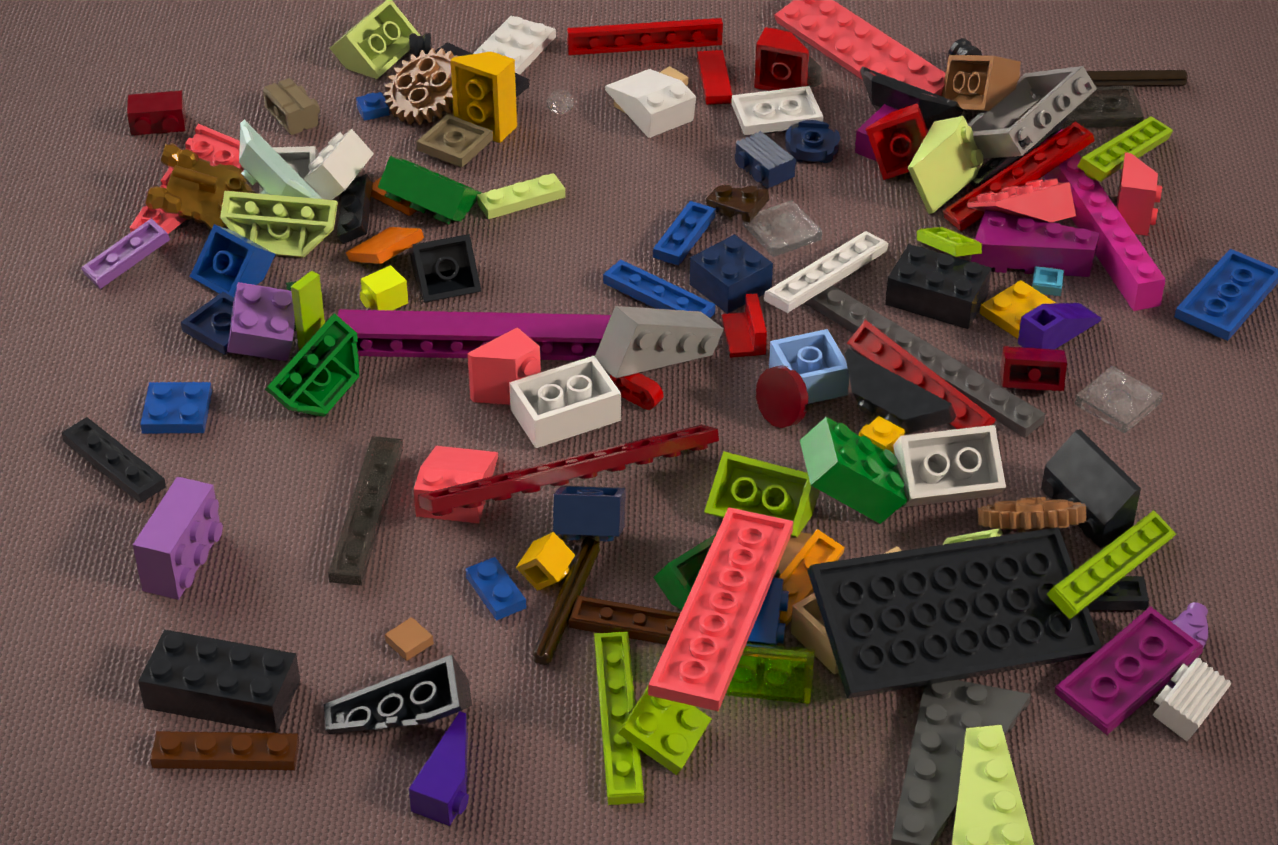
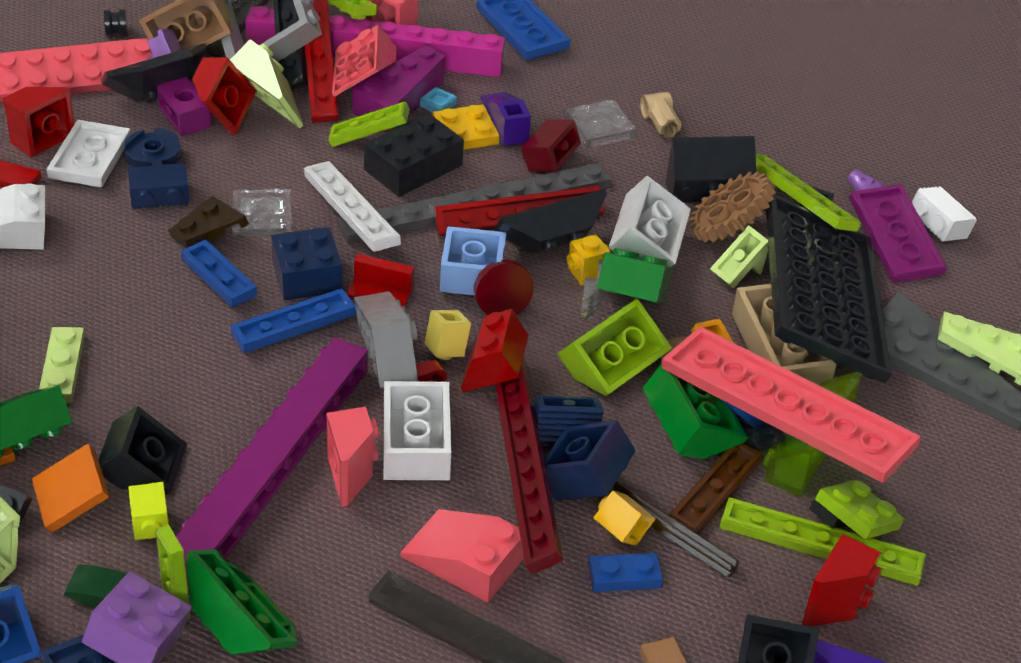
camera: 70 degrees left, 0 degrees up
(543, 722) = (843, 583): none -> red slope
(646, 490) = (558, 412): none -> dark blue brick
(691, 412) = (496, 351): none -> red slope
(698, 381) = (447, 333): none -> light yellow brick
(939, 83) = (164, 43): none -> medium lavender panel
(1175, 430) = (660, 110): none -> tan piece

